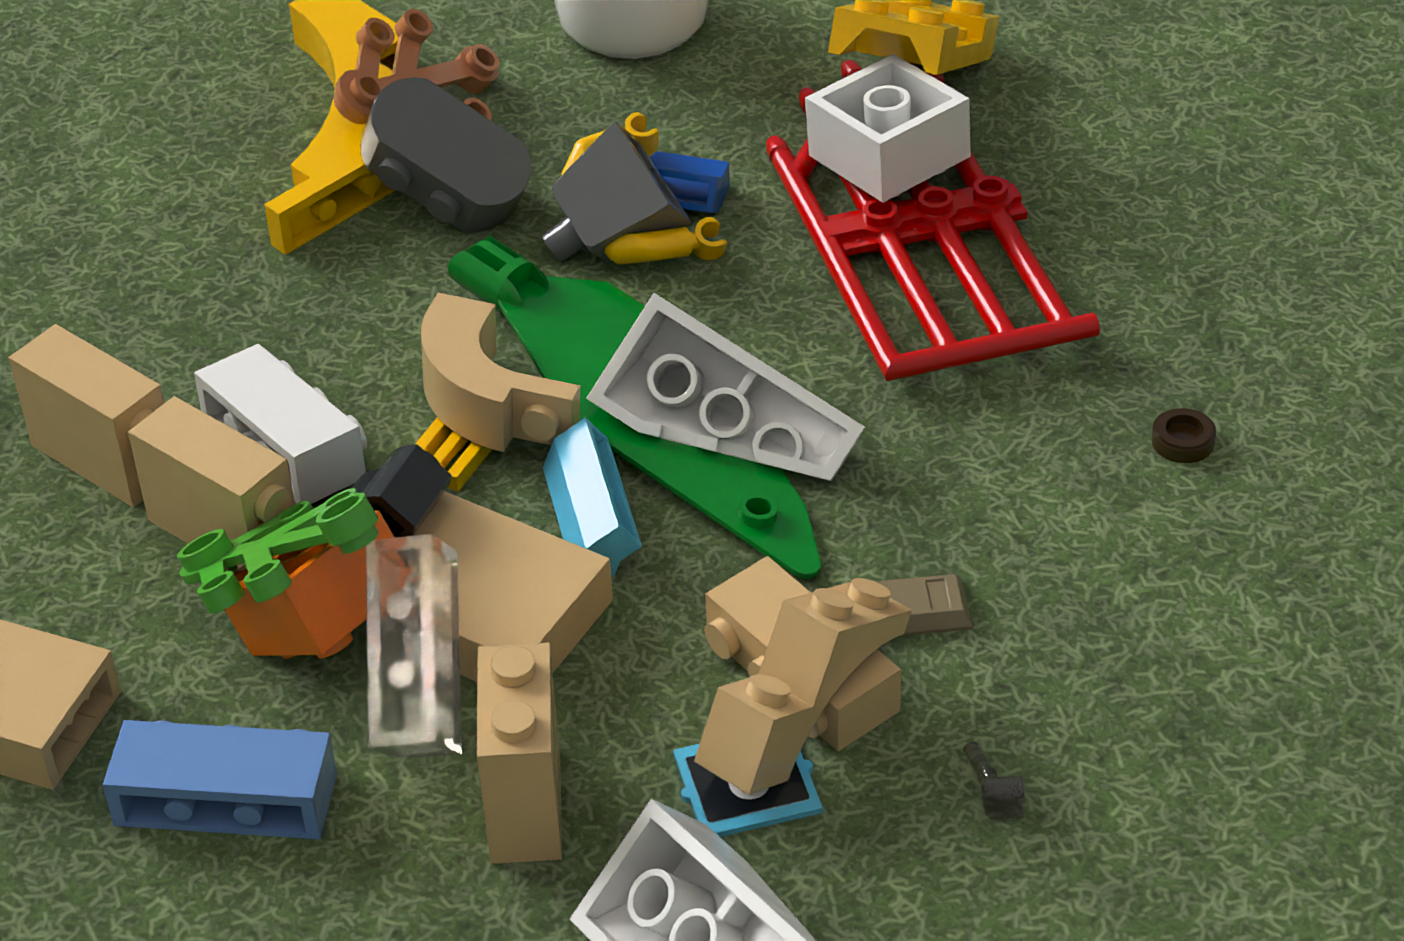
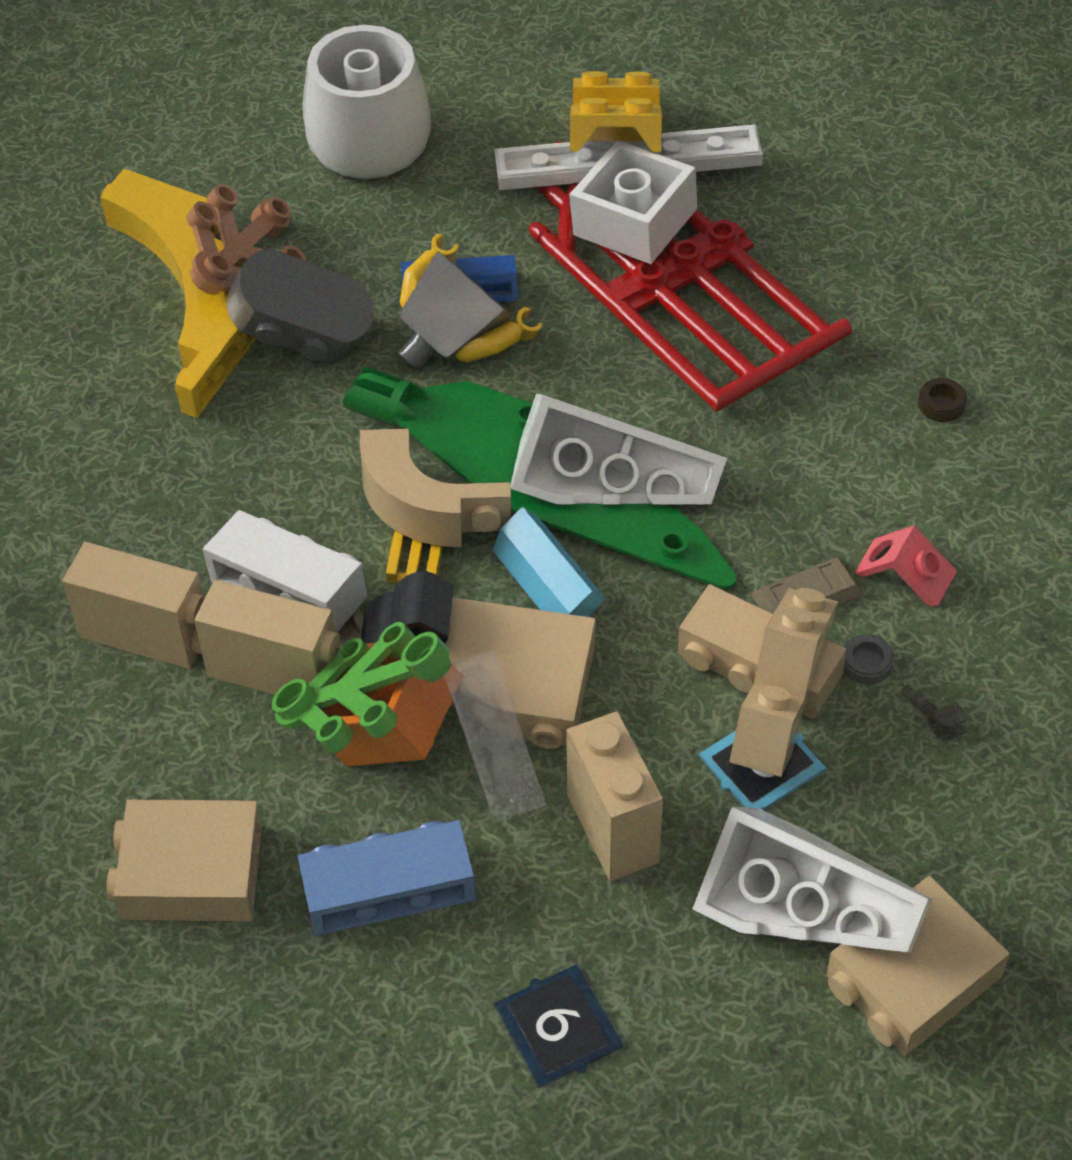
camera: 20 degrees left, 10 degrees up
(938, 699) = (868, 659): none -> dark grey tile
(990, 95) = (558, 165): none -> white tile
(1051, 607) = (913, 560): none -> coral bracket

